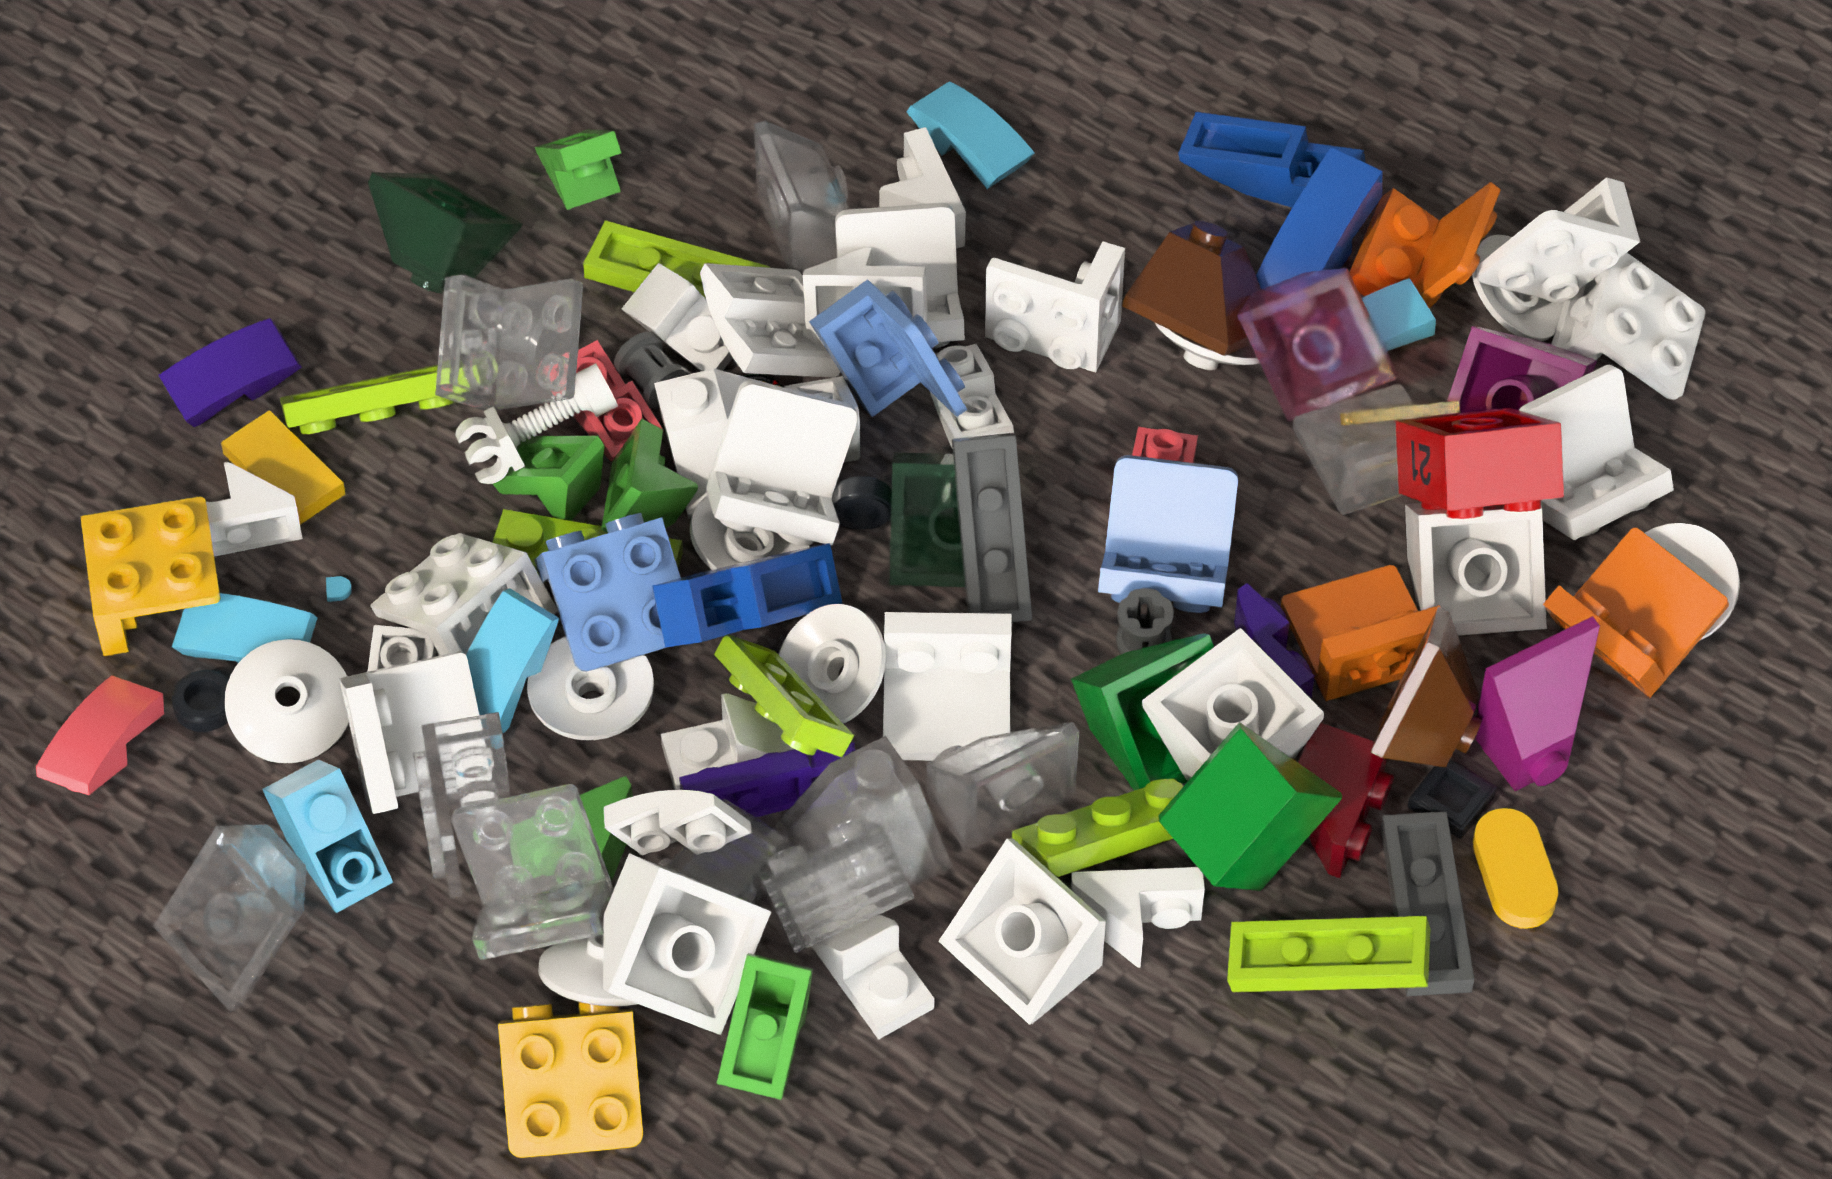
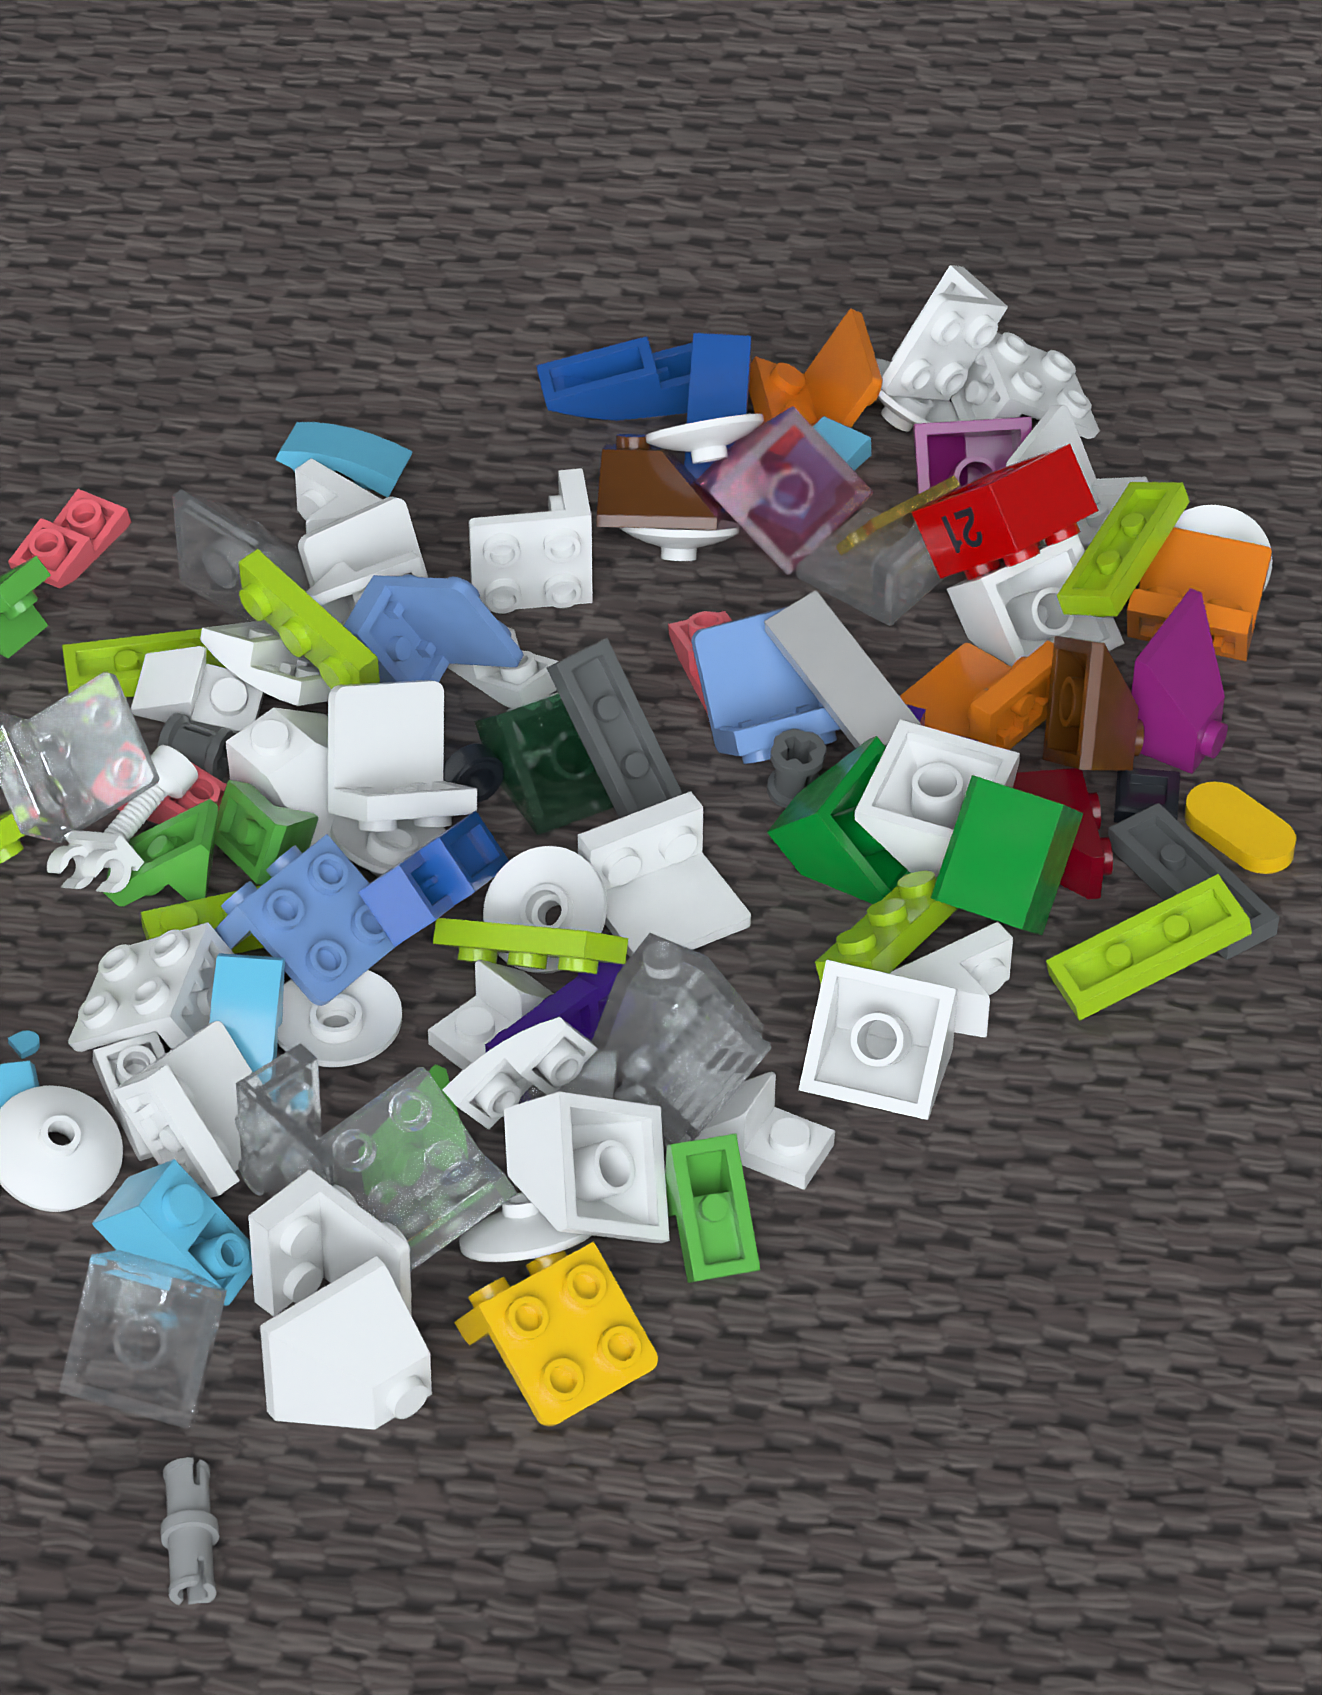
camera: 30 degrees left, 10 degrees down
(161, 1107) = (189, 1531): none -> light grey pin
(371, 1014) = (346, 1355): none -> white slope
(406, 890) = (318, 1234): none -> white bracket
(675, 124) = (74, 538): none -> coral slope
(786, 305) = (304, 624): none -> lime plate
(1003, 781) = (773, 928): clear slope -> none
(1224, 554) = (837, 670): none -> light grey tile
(1268, 261) = (706, 438): none -> white dish
(1576, 541) = (1123, 549): none -> lime plate

